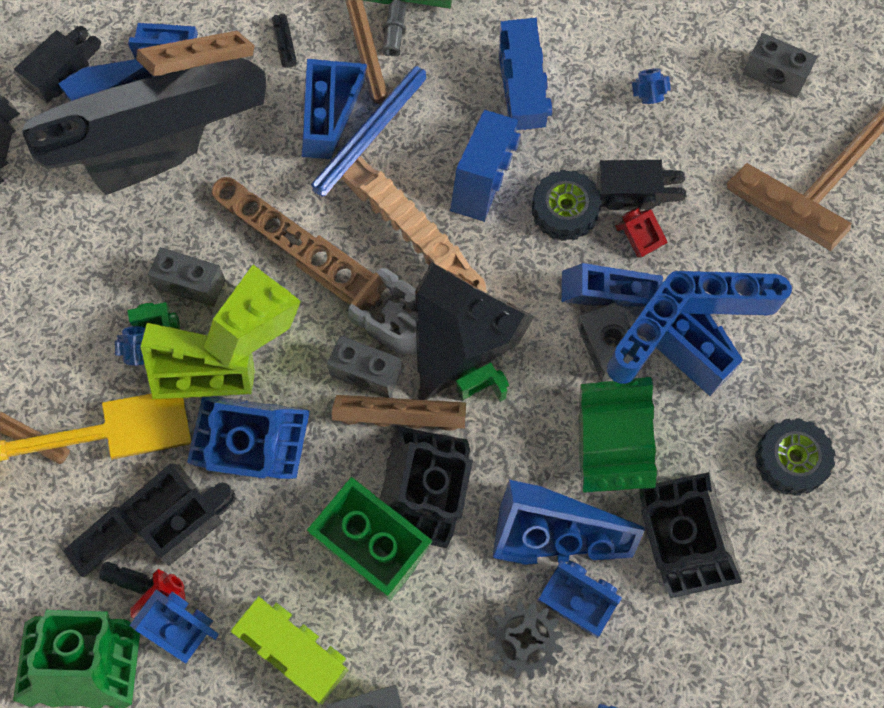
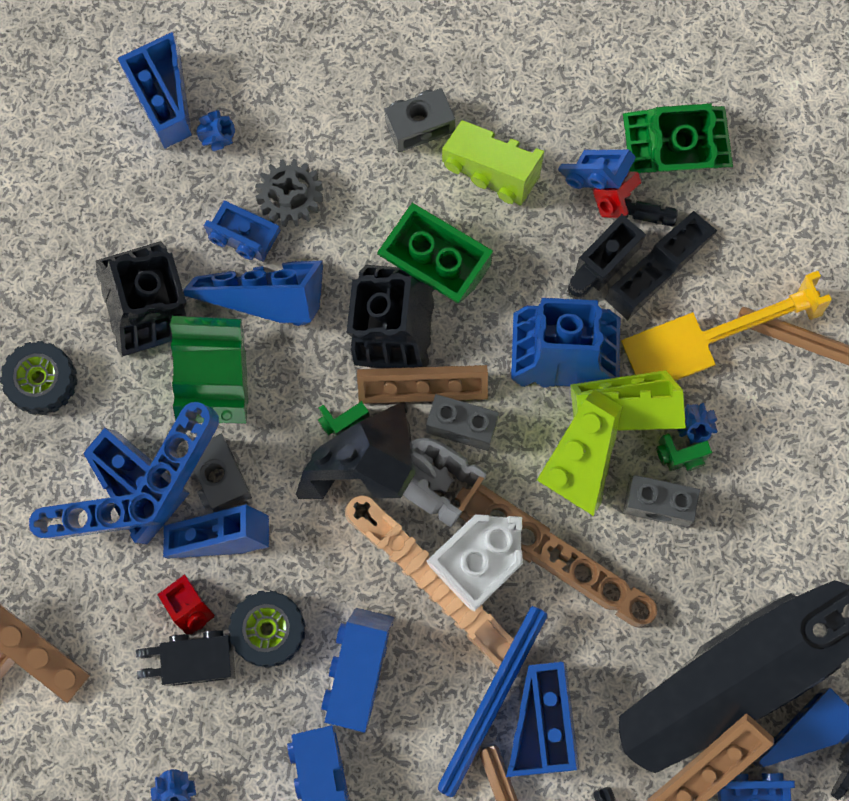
camera: 175 degrees right, 5 degrees up
(363, 232) = (479, 557): none -> white tile

